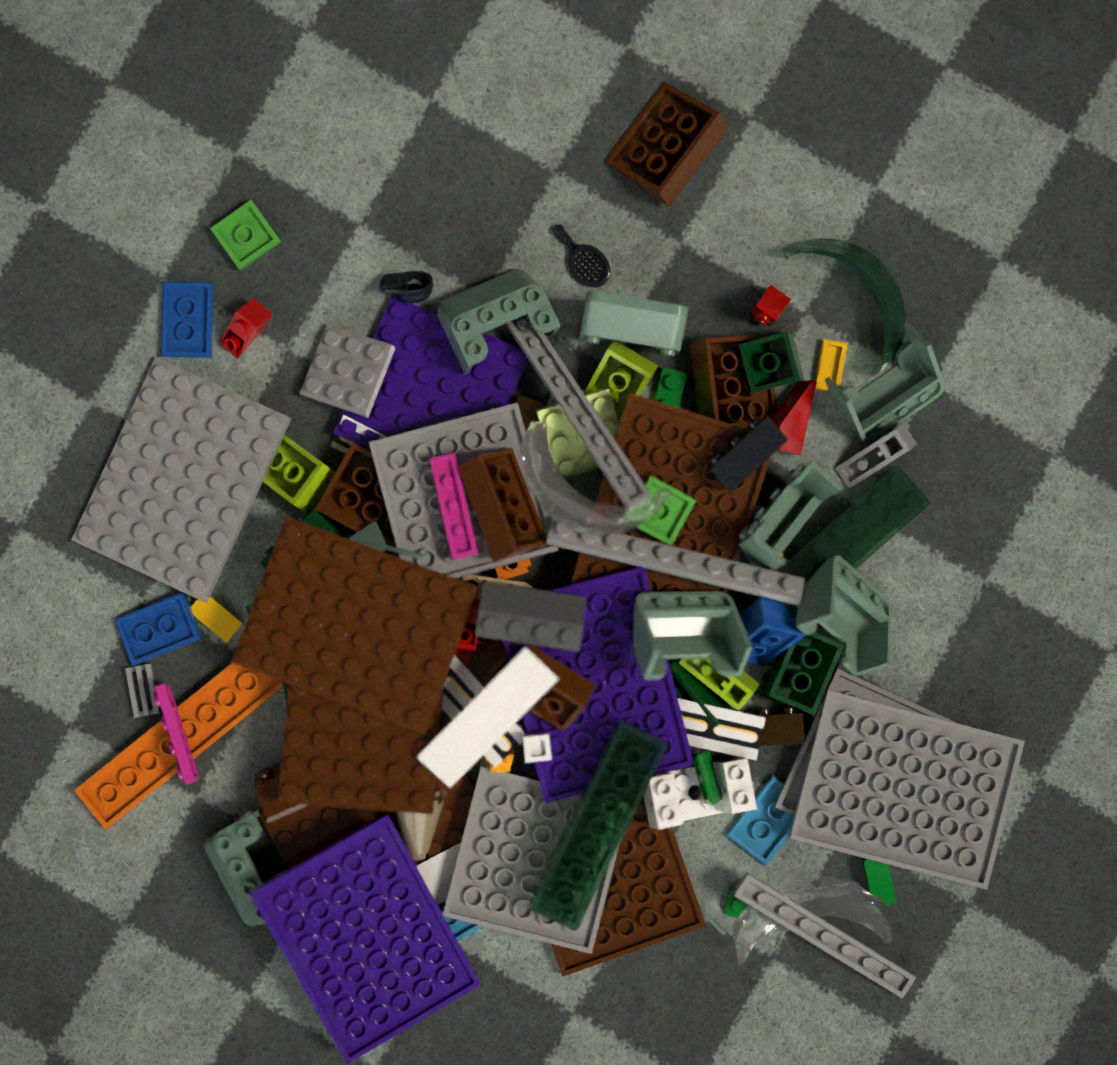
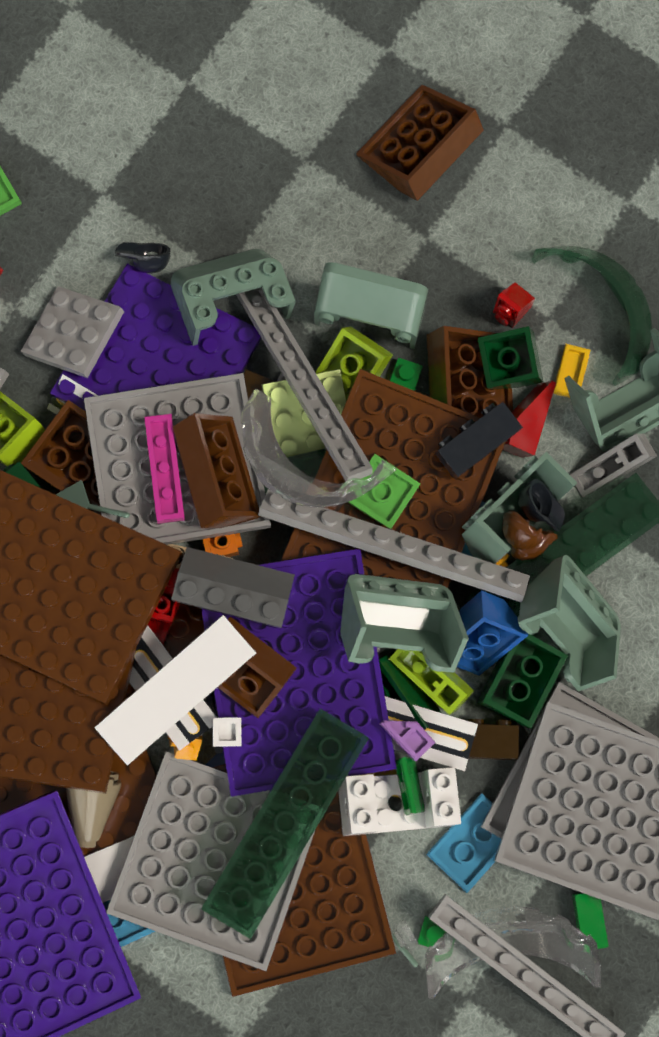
camera: 10 degrees right, 10 degrees down
(567, 240) = (305, 218): black piece -> none
(704, 735) = (409, 737): none -> medium lavender tile
(797, 540) = (525, 539): none -> reddish brown hair
(810, 507) = (540, 505): none -> black cap

